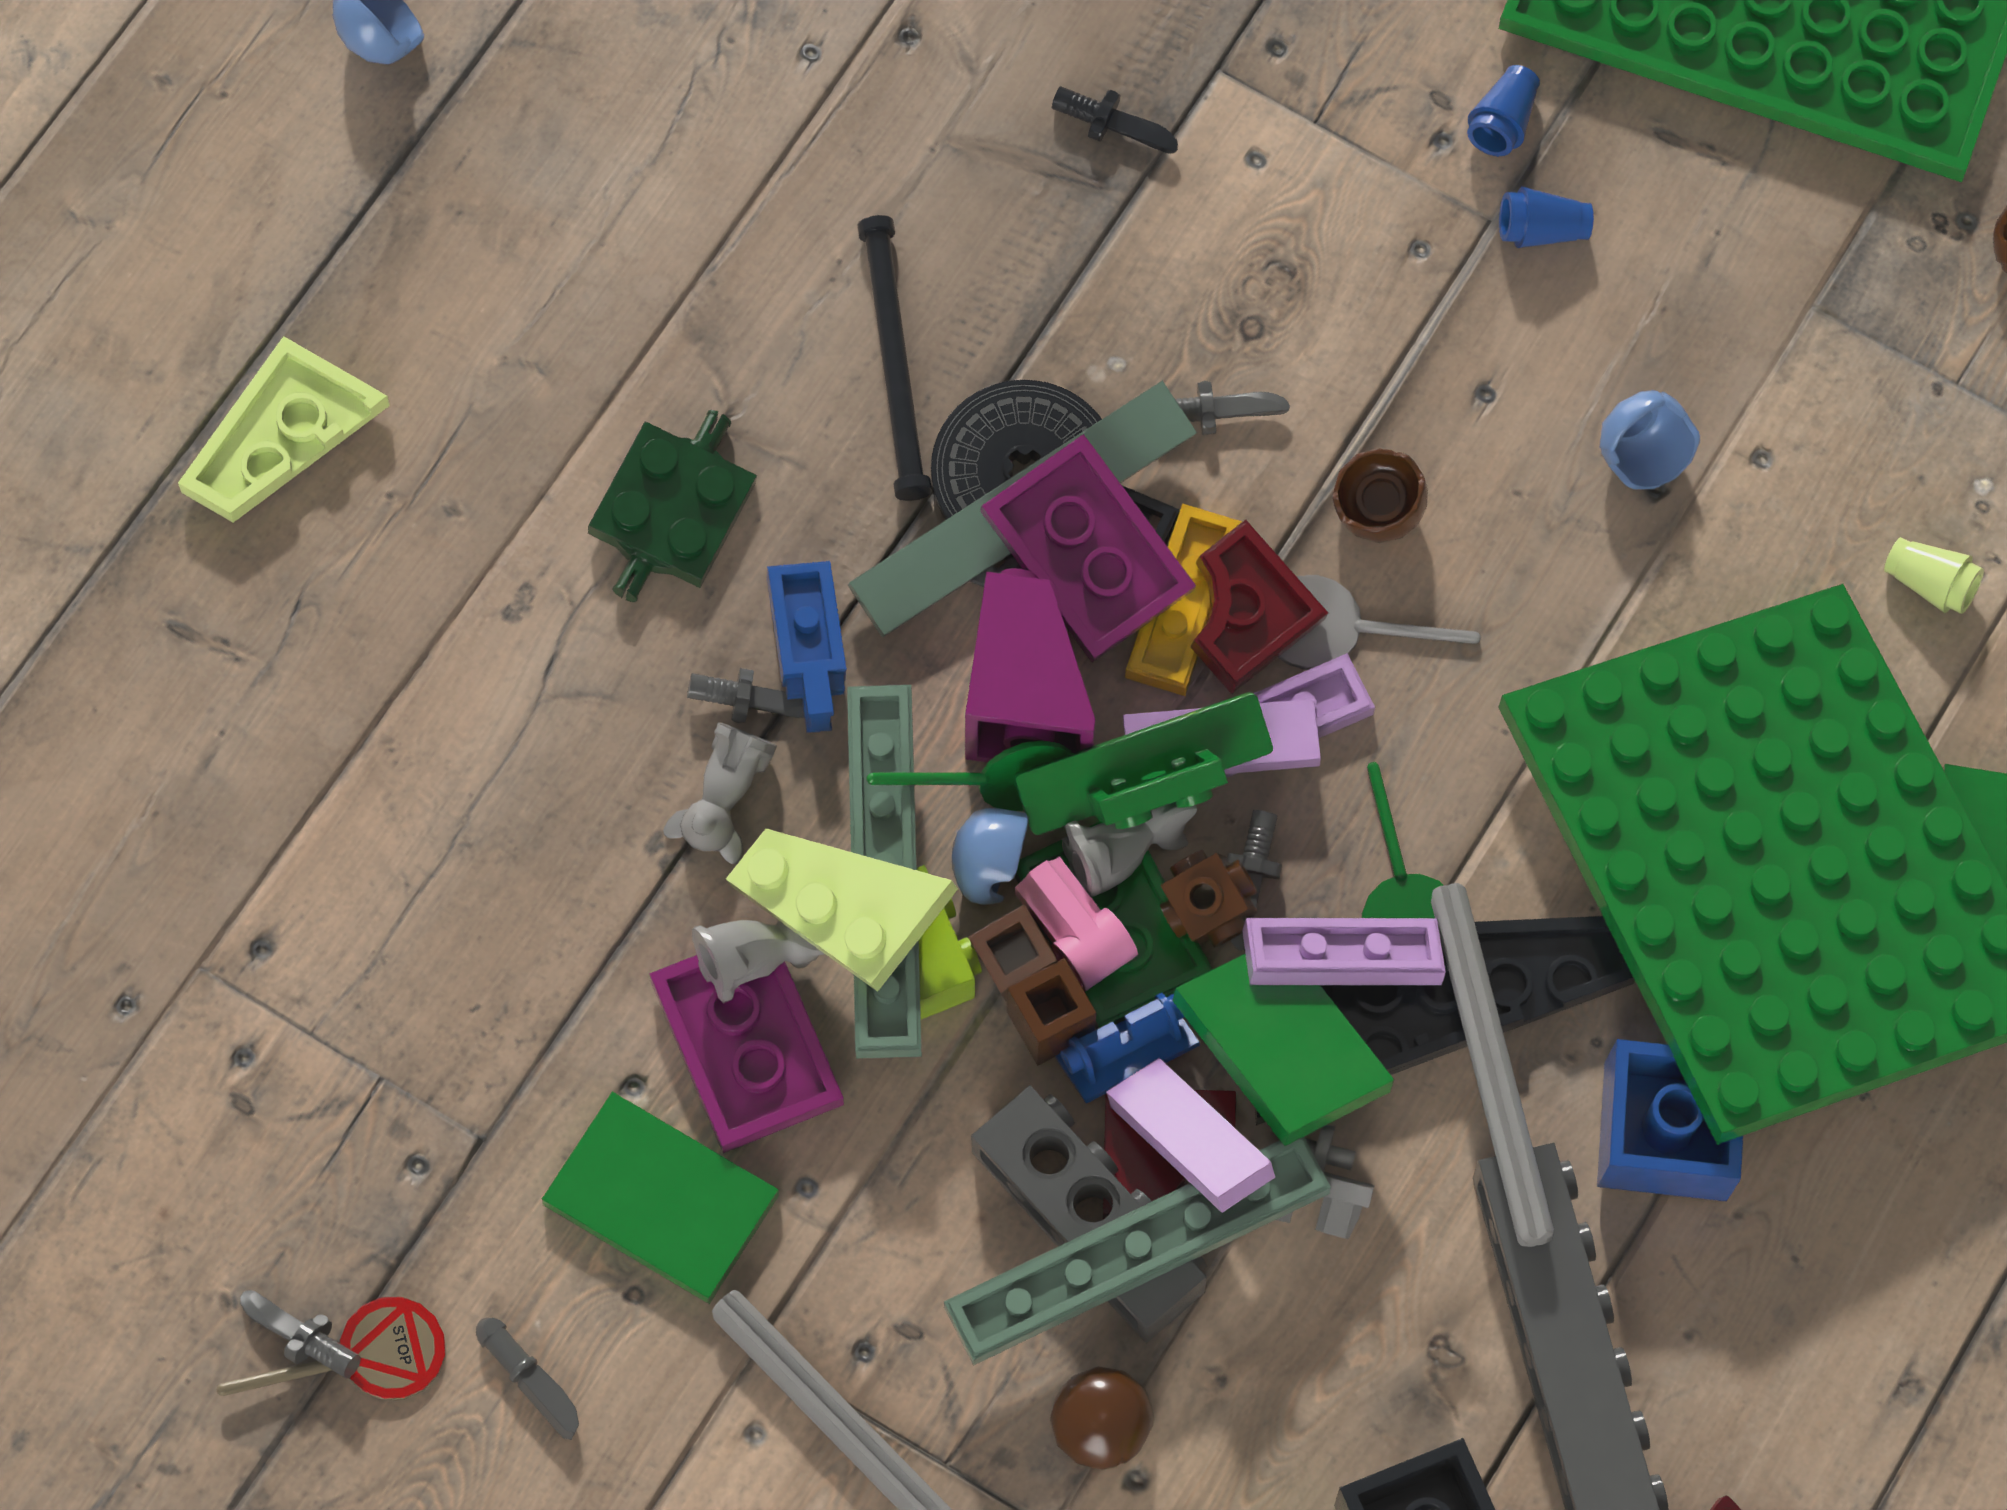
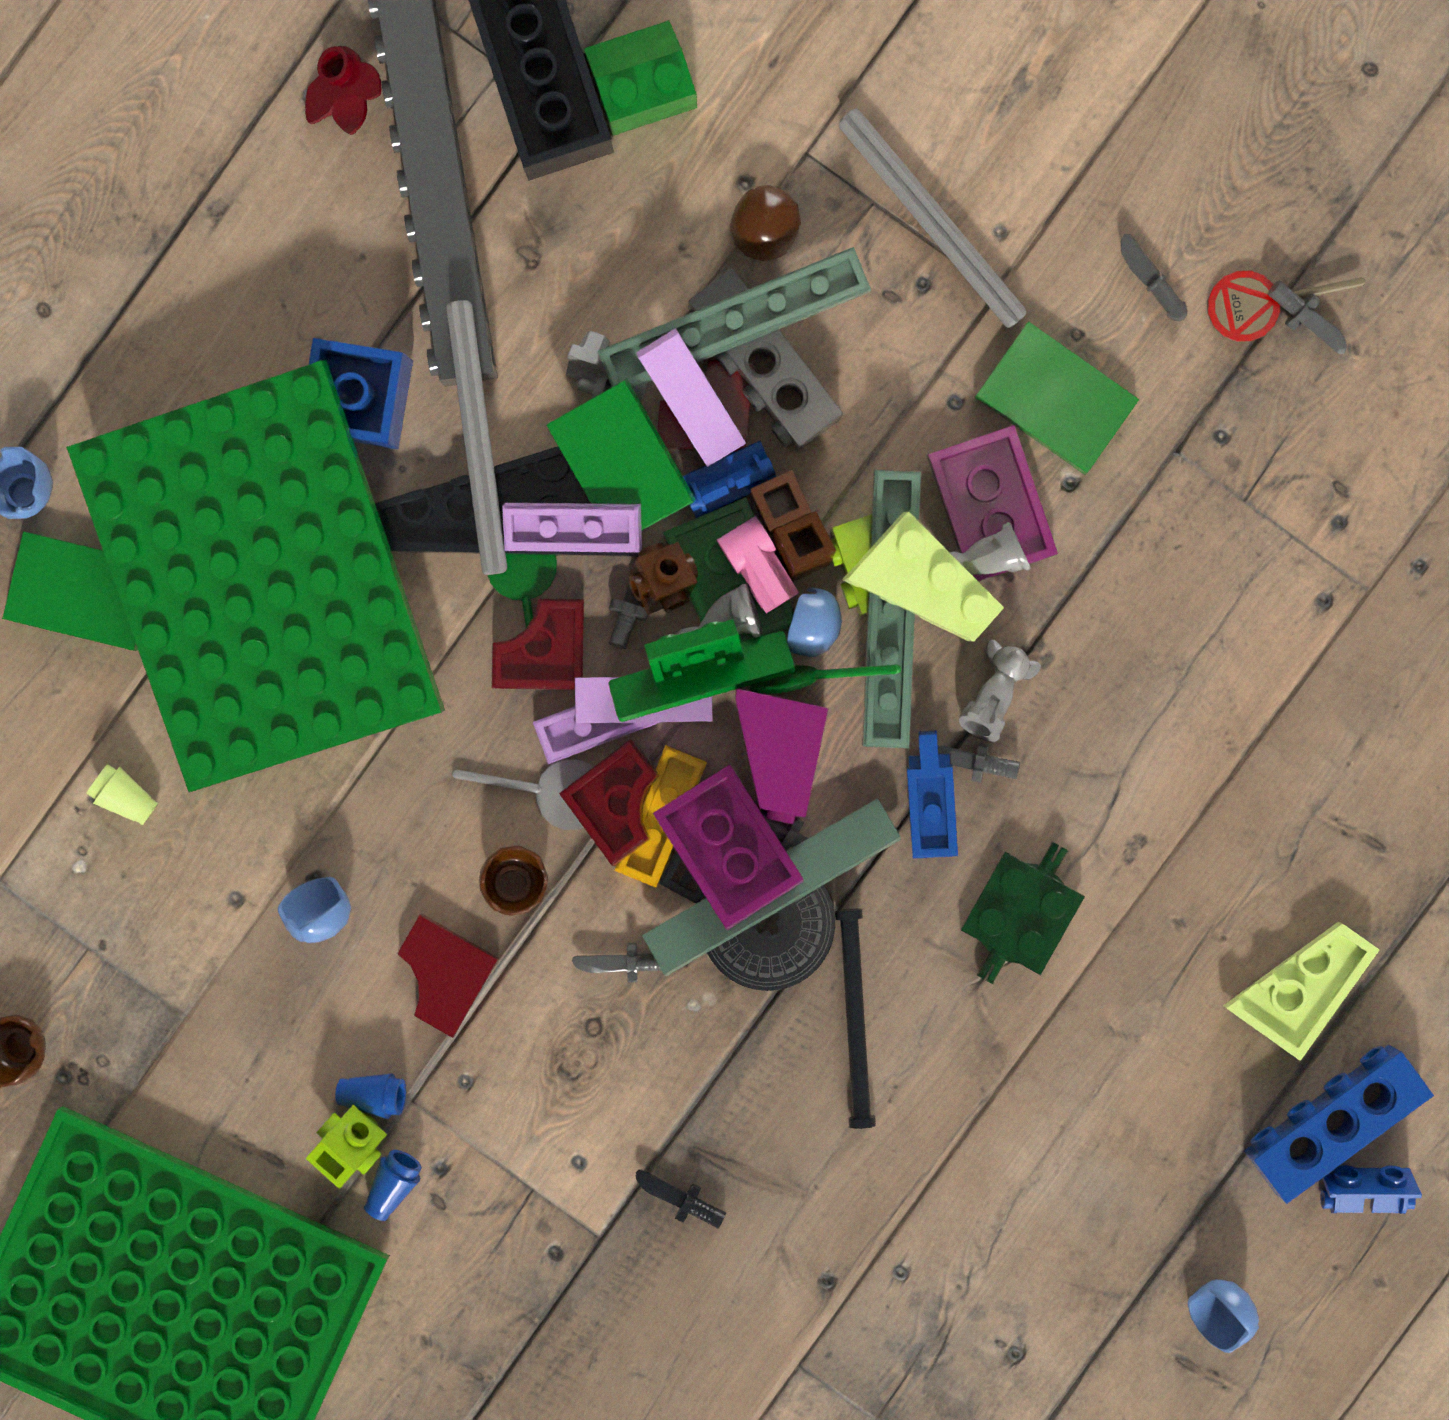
camera: 175 degrees left, 20 degrees up
(173, 193) = (1388, 1187): none -> blue hinge
(239, 232) = (1327, 1149): none -> blue brick
(1365, 801) = (546, 652): none -> dark red tile
(1458, 380) = (447, 972): none -> dark red tile
(1569, 148) = (346, 1145): none -> lime brick

